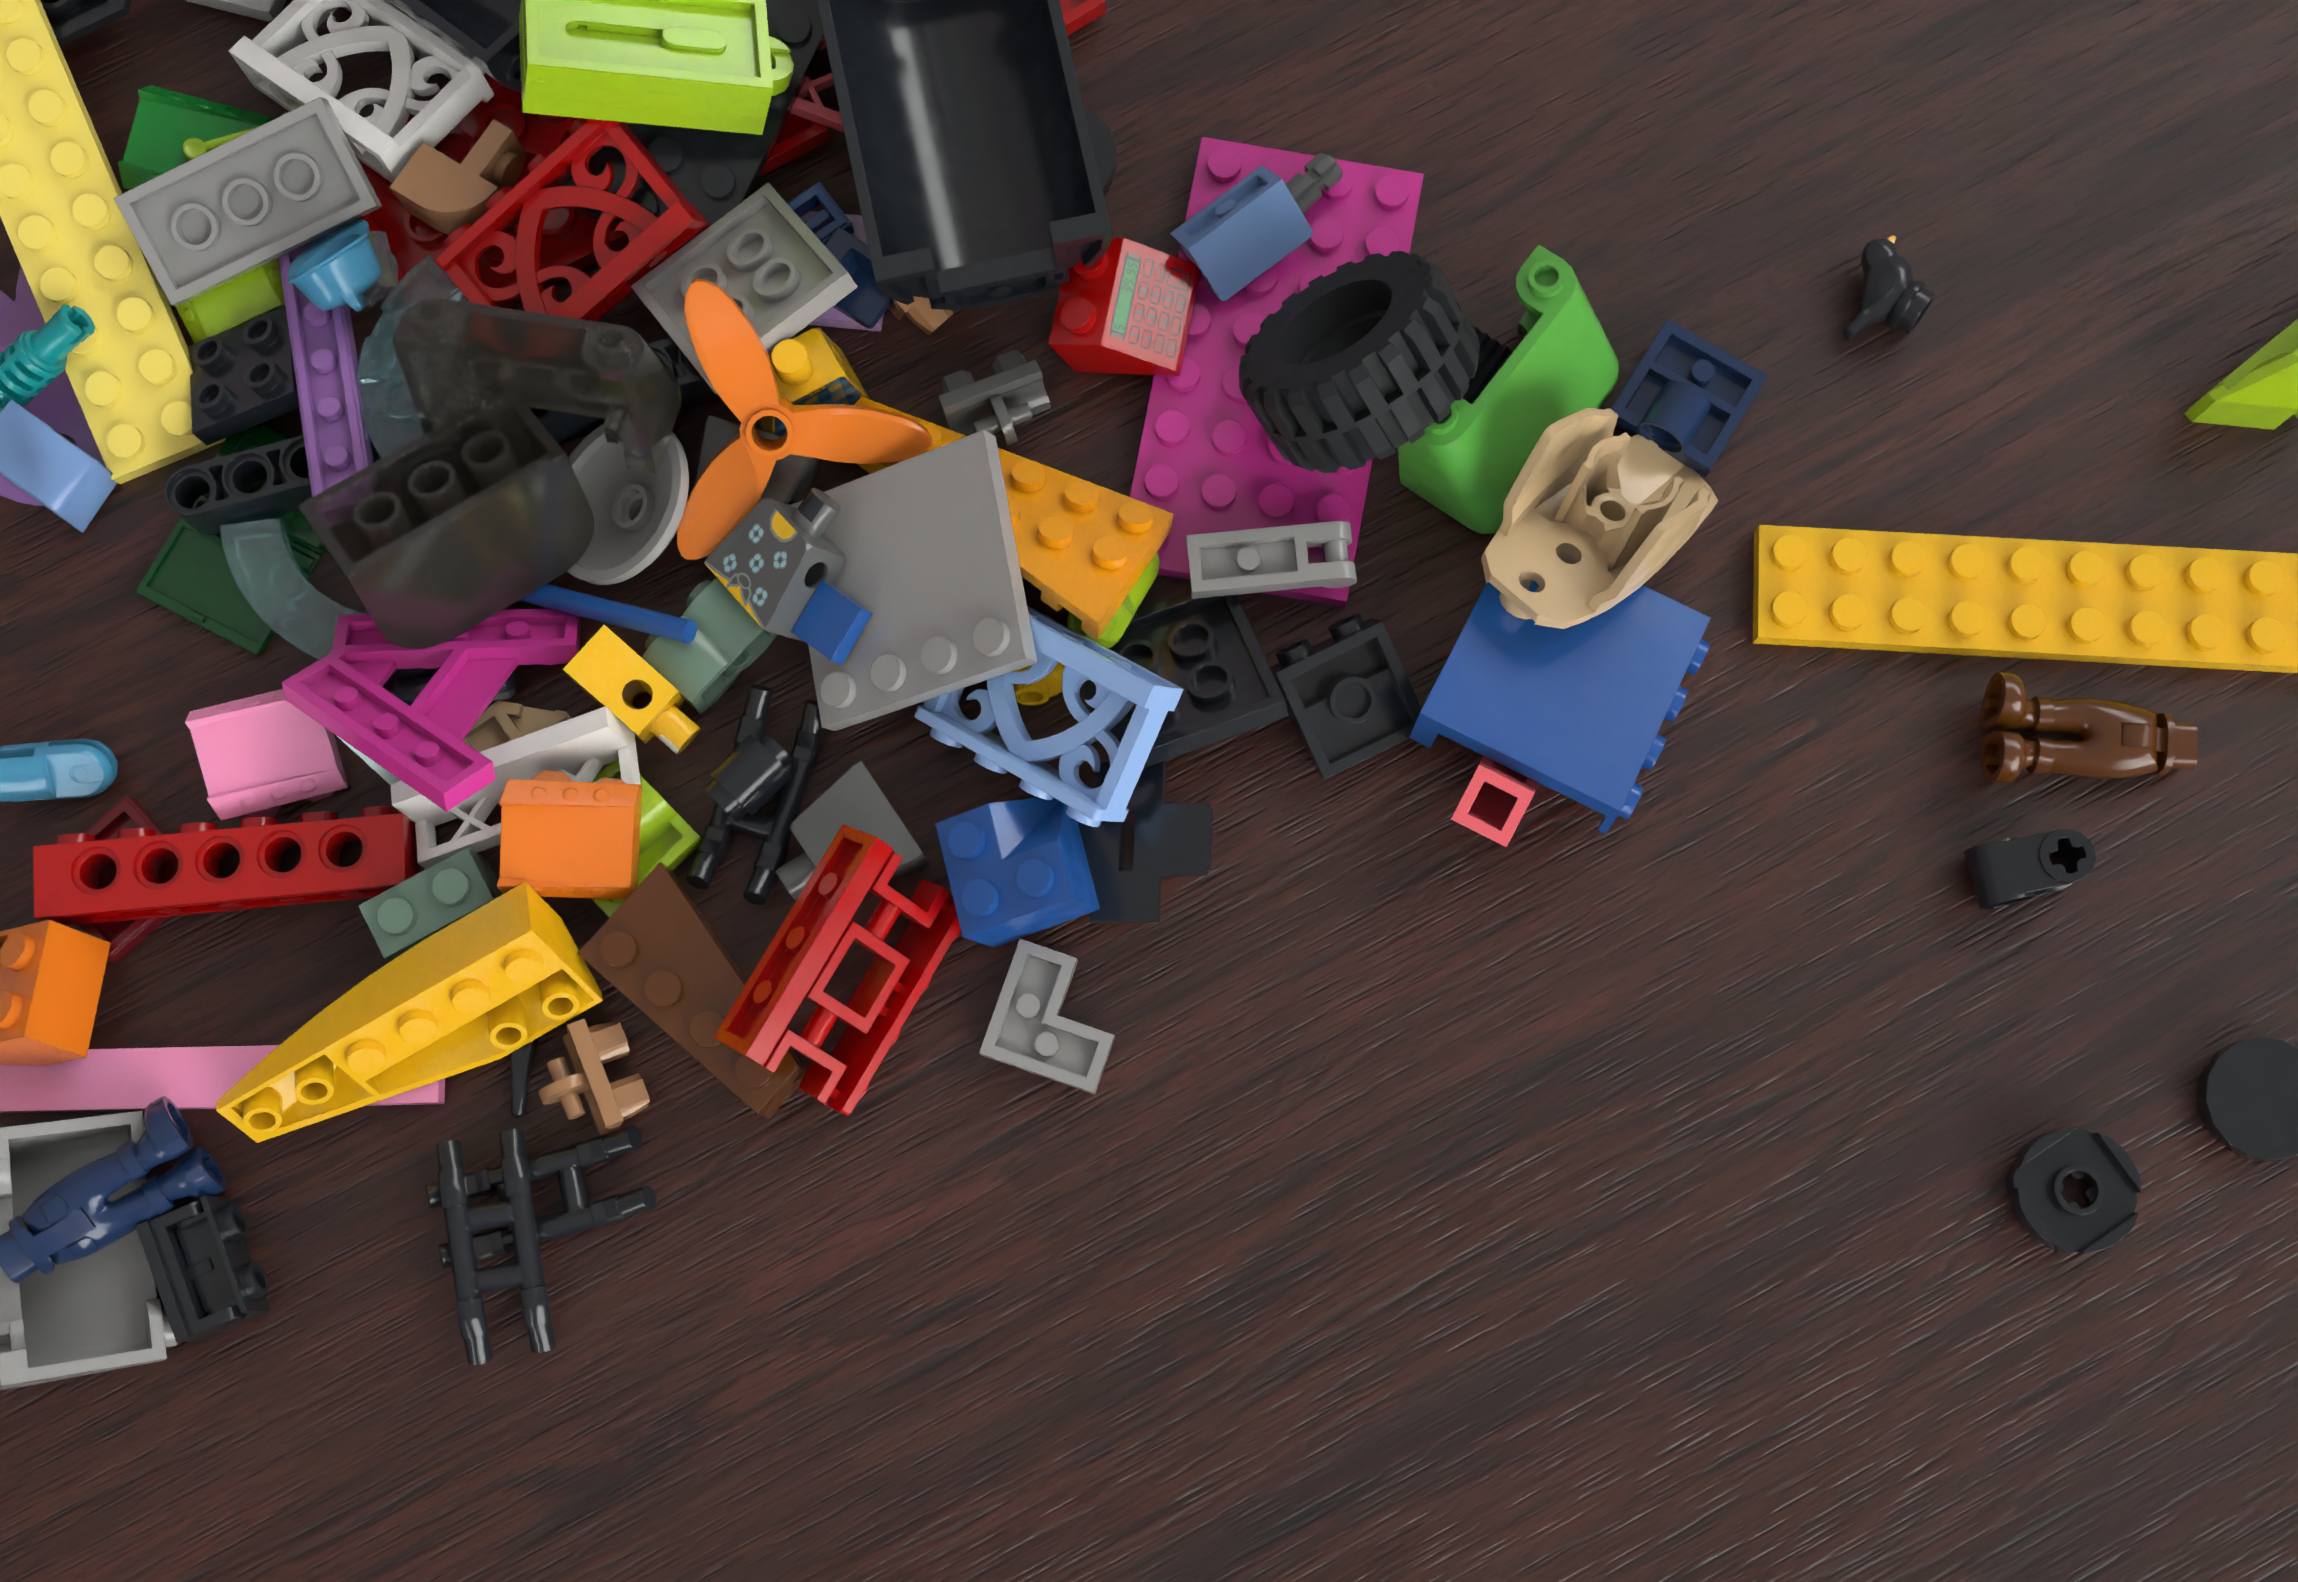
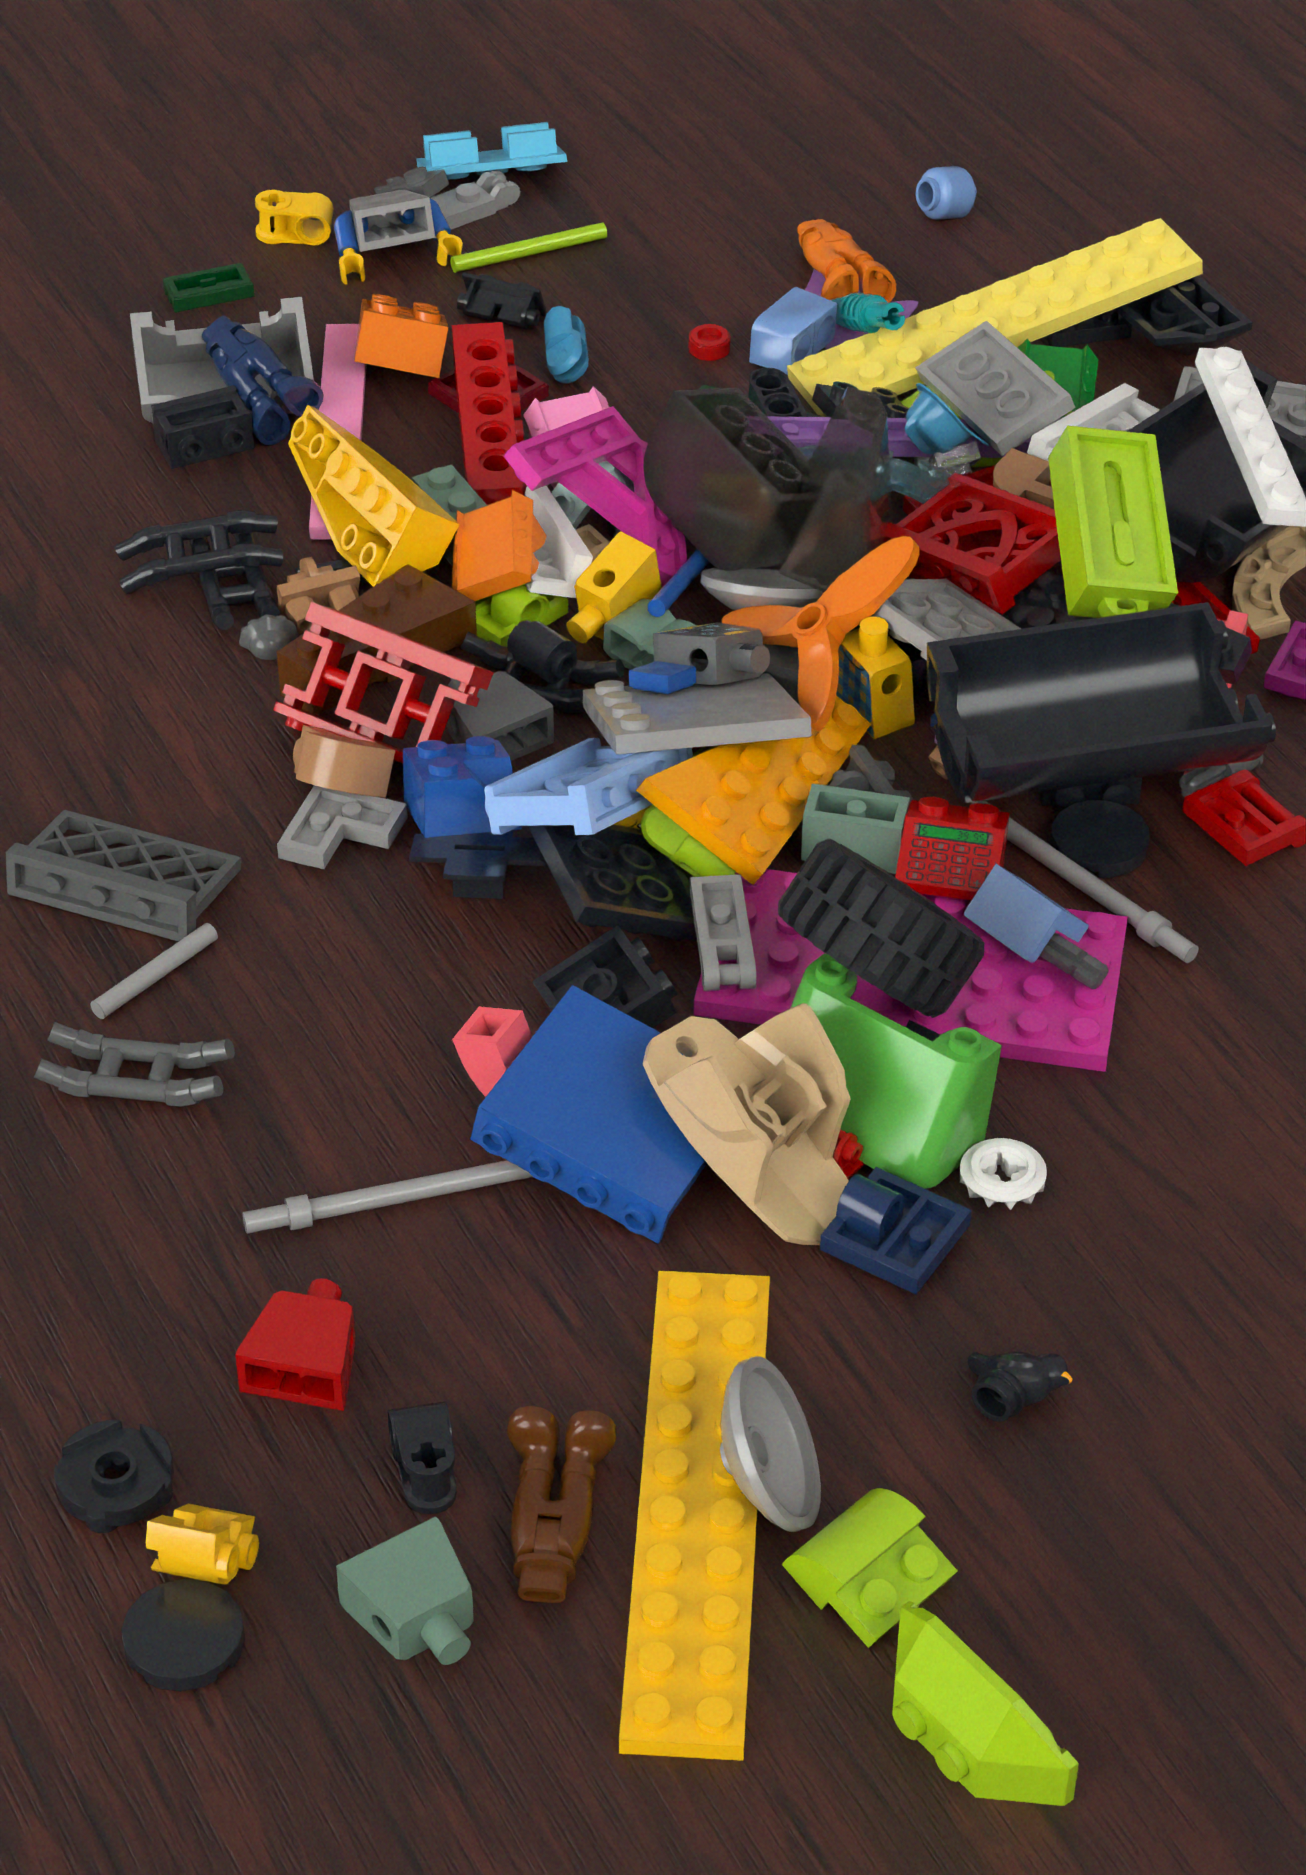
camera: 85 degrees right, 35 degrees down
(36, 583) = (709, 342): none -> red tile
(667, 1139) = (267, 635): none -> dark grey piece
(968, 1023) = (342, 762): none -> medium nougat brick
(1080, 410) = (857, 819): none -> sand green brick
(1173, 1307) = (116, 892): none -> dark grey fence
(1211, 115) = (1149, 925): none -> light grey bar
(1296, 1228) = (154, 970): none -> light grey bar
(1491, 1265) = (115, 1050): none -> dark grey piece
(1609, 272) = (1017, 1160): none -> white gear
(1684, 1022) = (301, 1211): none -> light grey bar
(1895, 1002) = (300, 1348): none -> red torso
(2043, 519) = (770, 1445): none -> light grey dish
(2129, 439) = (871, 1563): none -> lime brick
(2173, 1086) = (203, 1543): none -> yellow cylinder
(2211, 871) = (411, 1594): none -> sand green torso

